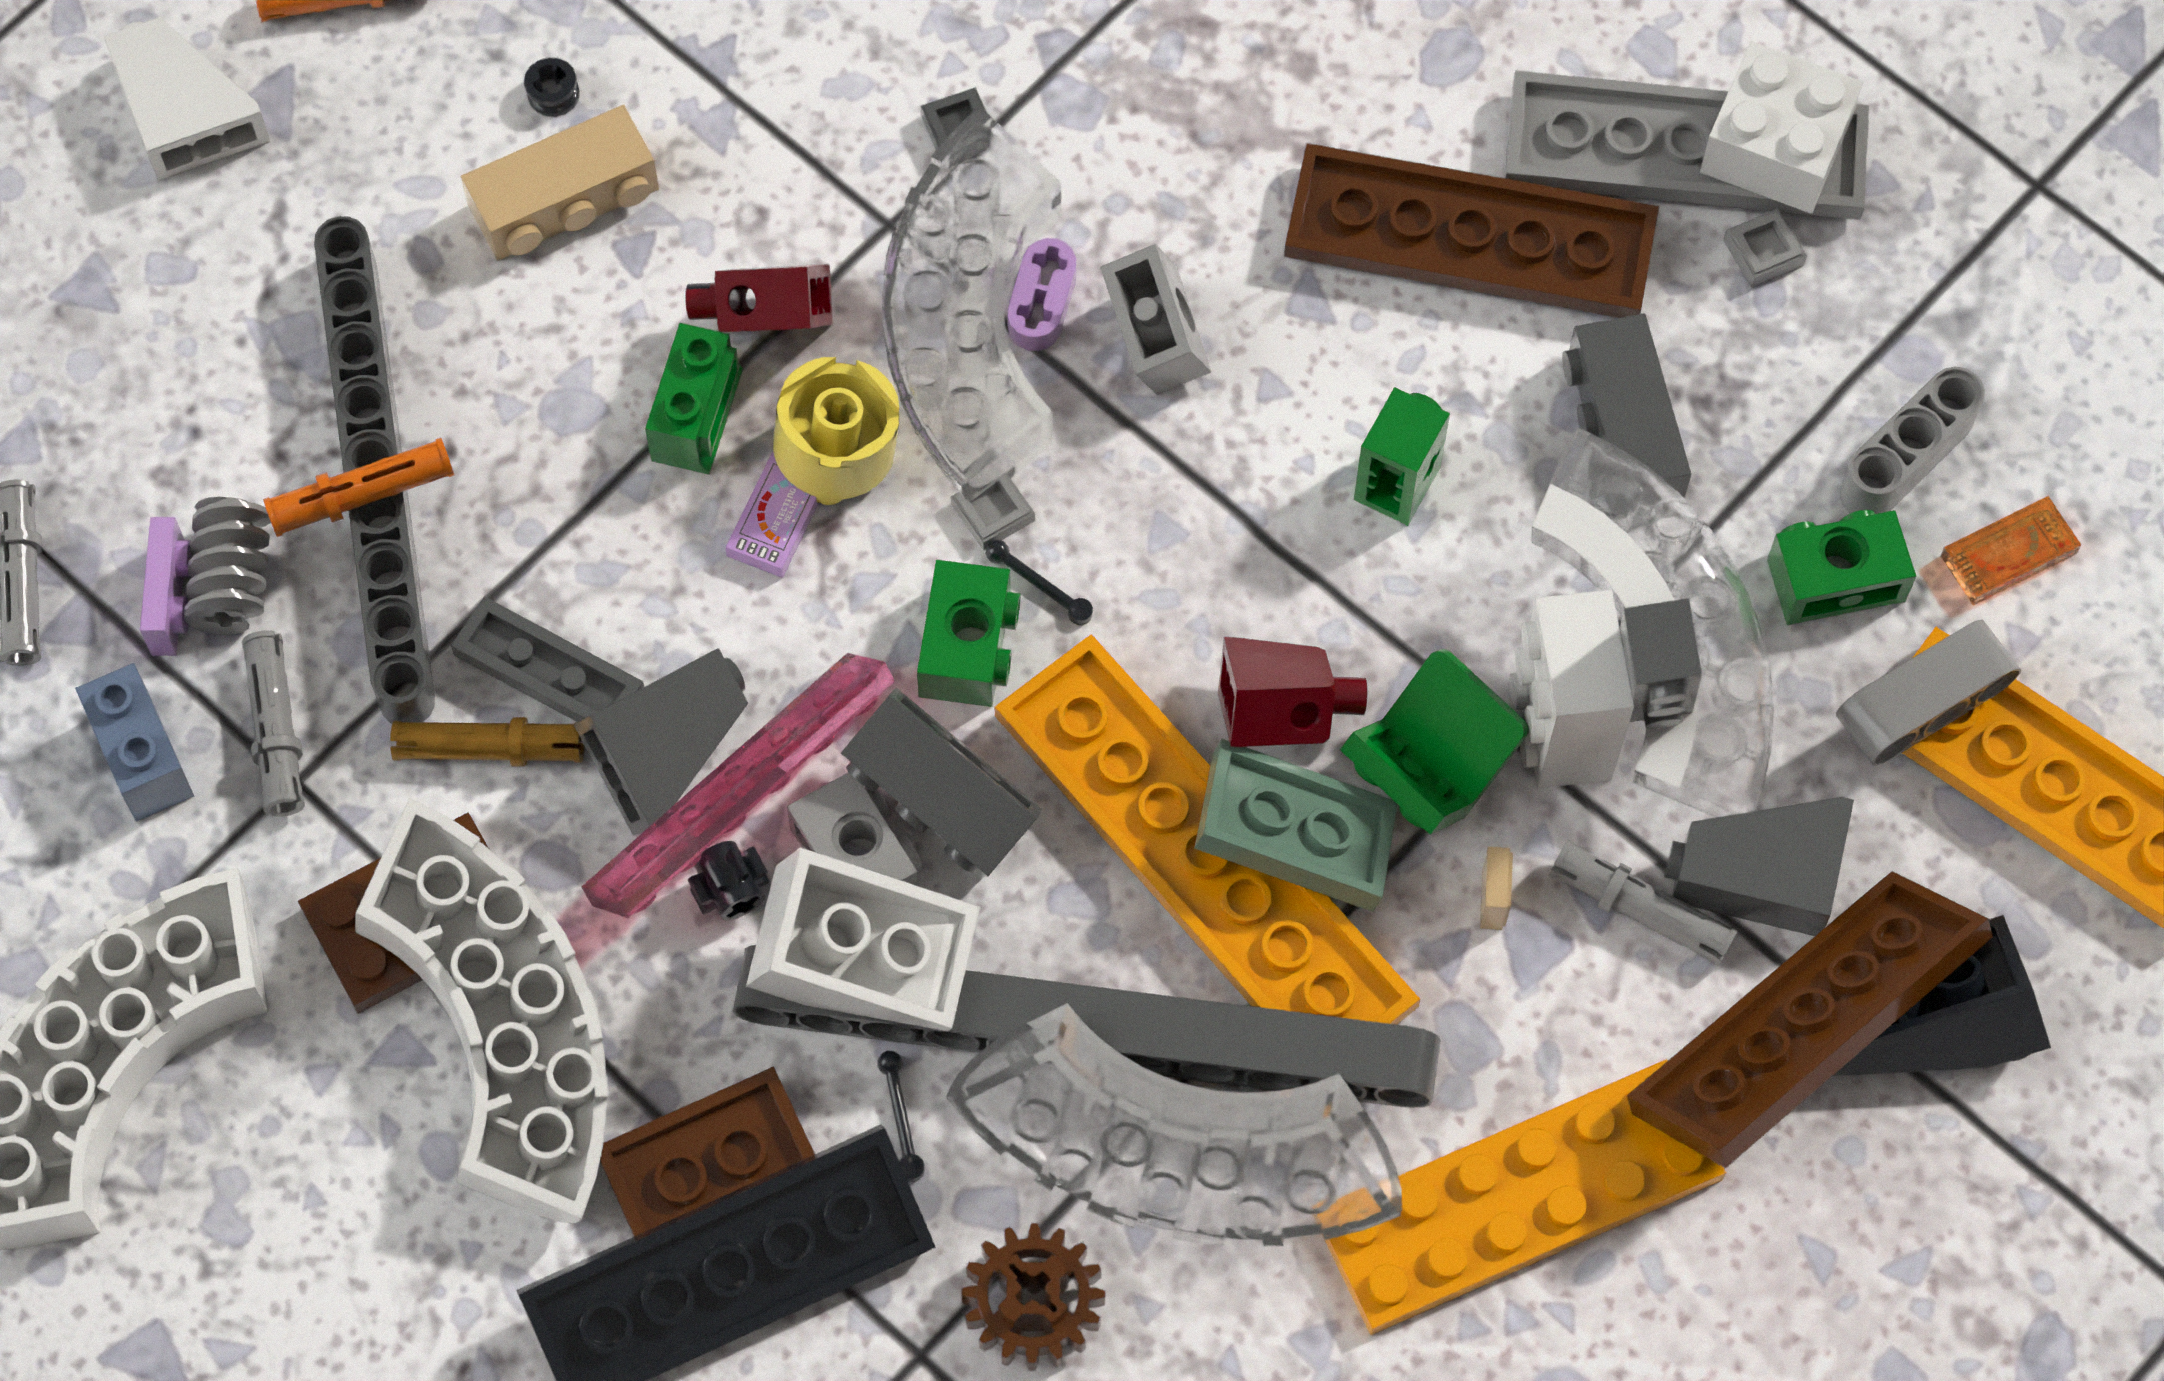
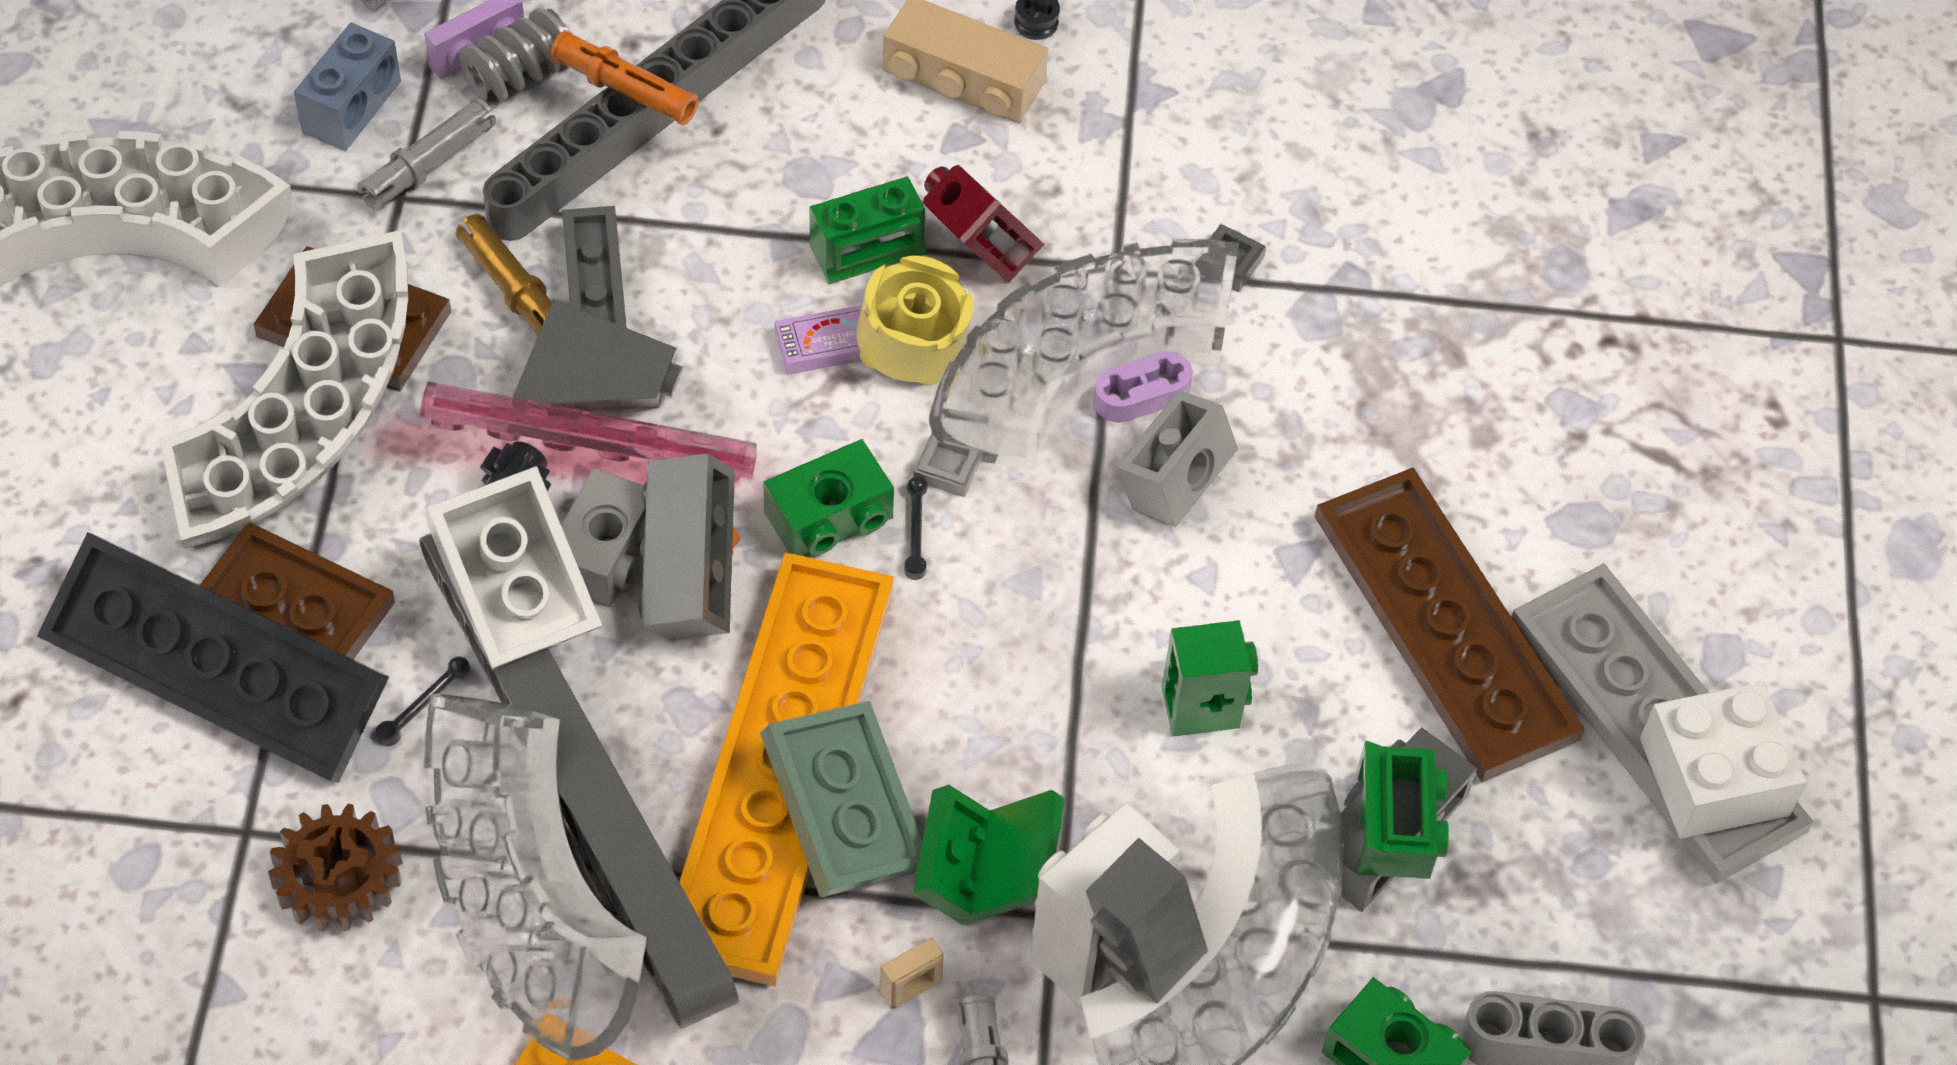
camera: 50 degrees right, 10 degrees down
(1282, 693) = (943, 721): dark red torso -> none
(1642, 410) = (1400, 854): none -> green window
(1765, 247) = (1627, 832): light grey tile -> none

